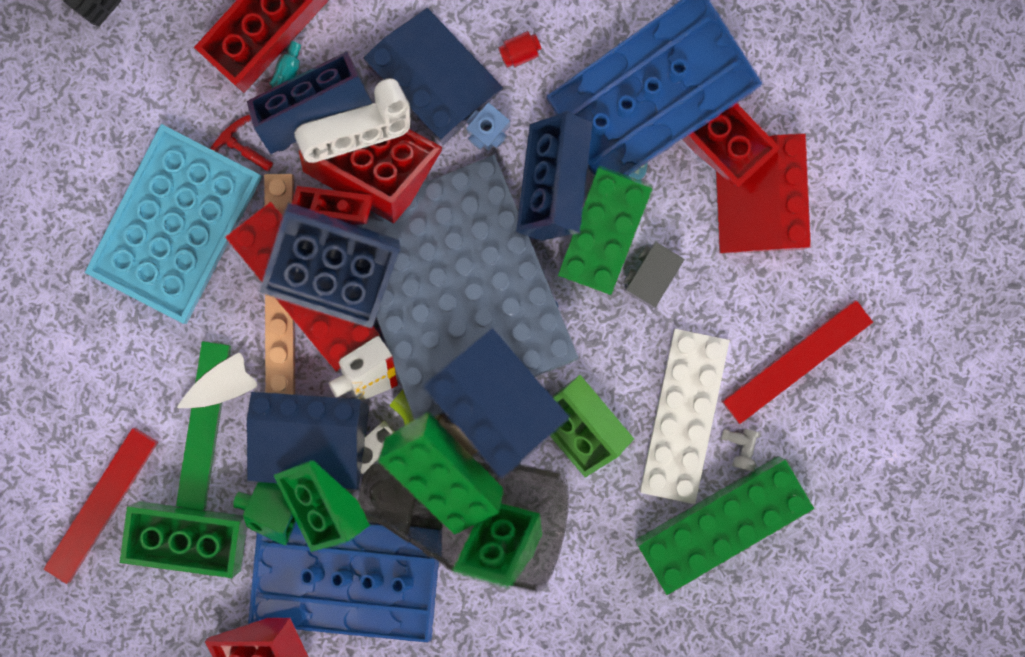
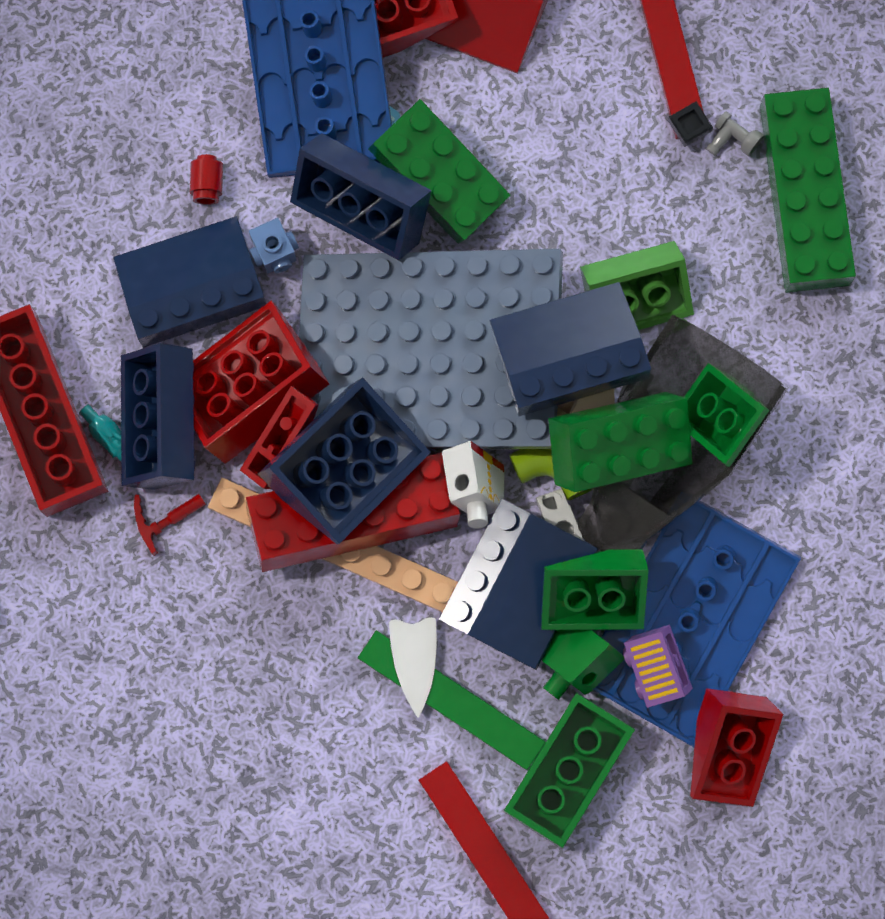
camera: 65 degrees left, 10 degrees down
(173, 224) = (214, 630): medium azure plate -> none
(289, 573) = (657, 666): none -> medium lavender brick
(358, 127) = (210, 372): white beam -> none
(653, 274) = (508, 147): dark grey brick -> none
(684, 416) = (674, 182): white plate -> none
(736, 409) = (690, 124): none -> black tile

